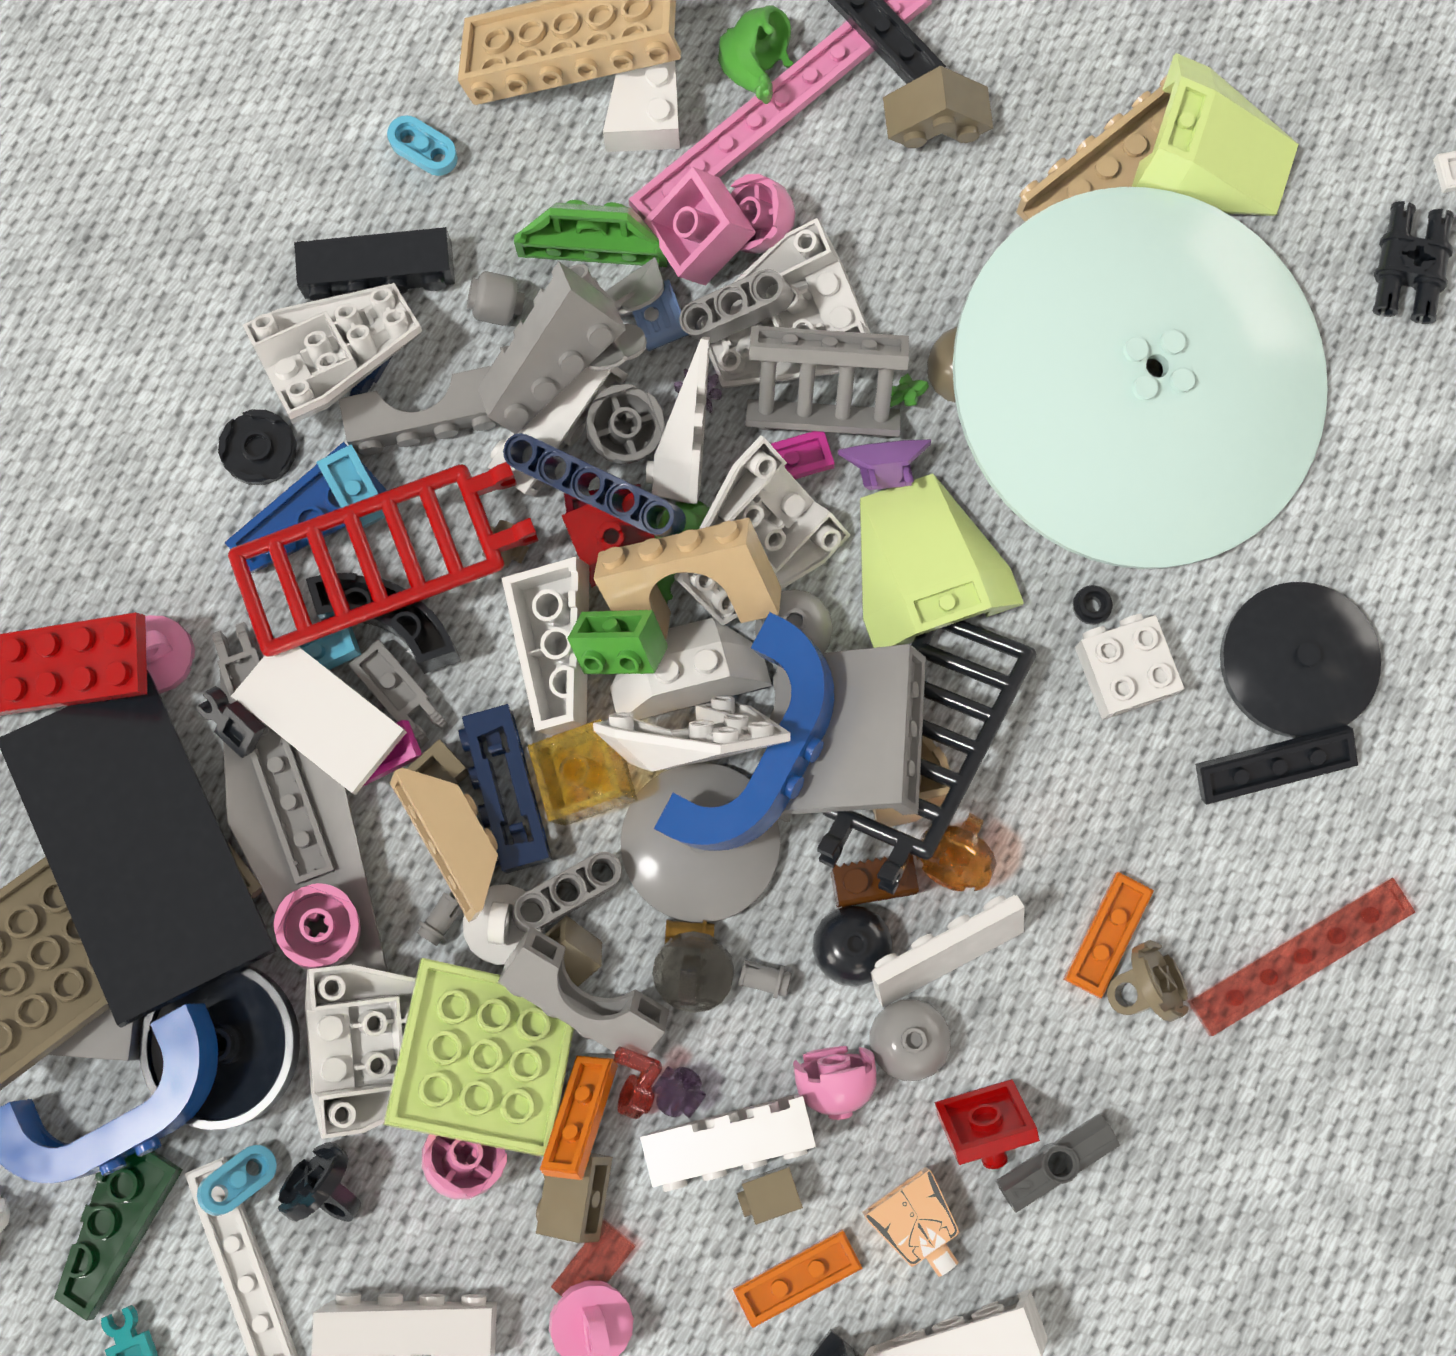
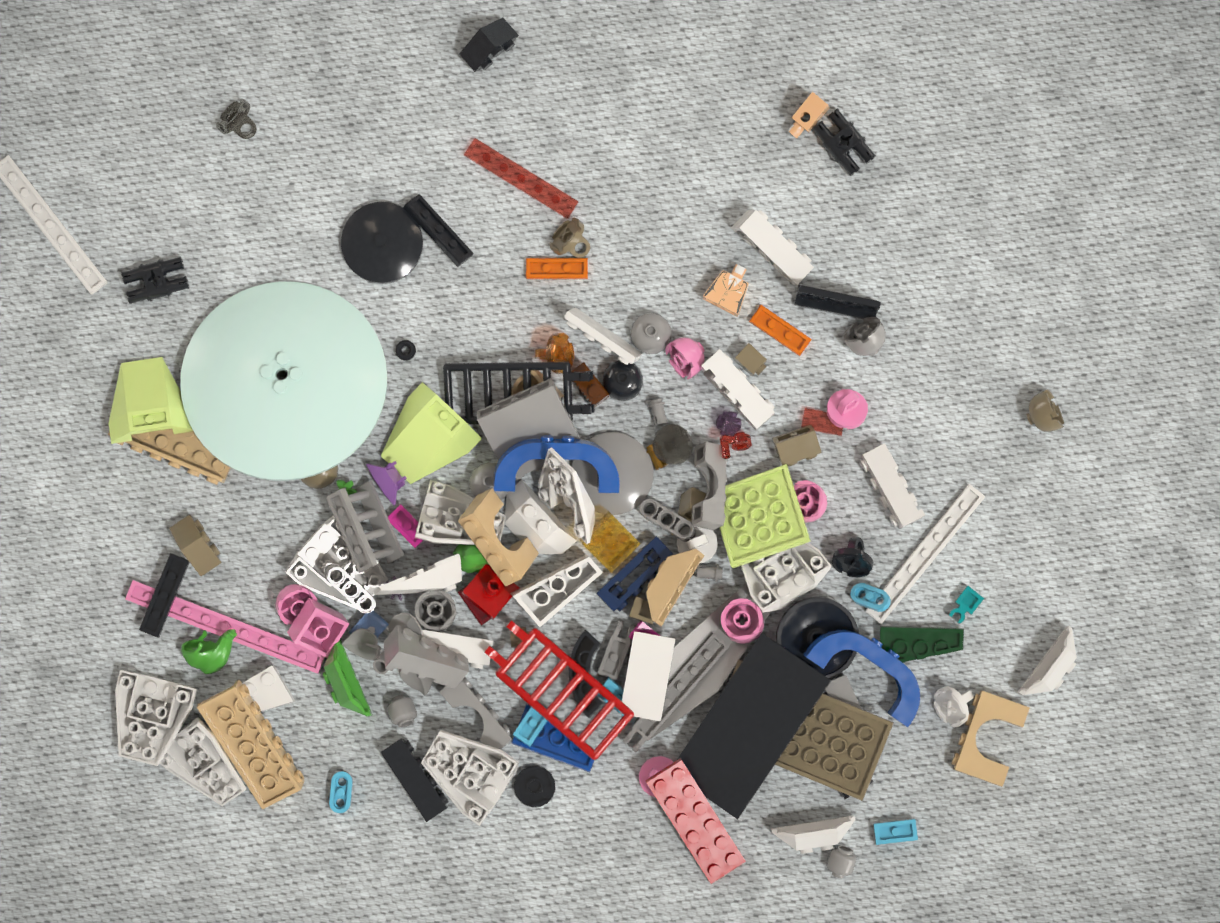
camera: 115 degrees left, 5 degrees up
(234, 722) = (673, 712): black plate -> none
(577, 480) = (472, 594): dark blue beam -> none
(578, 1118) = (762, 460): orange tile -> none
(618, 642) = (542, 555): bright green brick -> none
(987, 1124) = (670, 281): red tile -> none
(1081, 1148) = (658, 235): dark grey piece -> none
(1128, 665) = (427, 319): white brick -> none

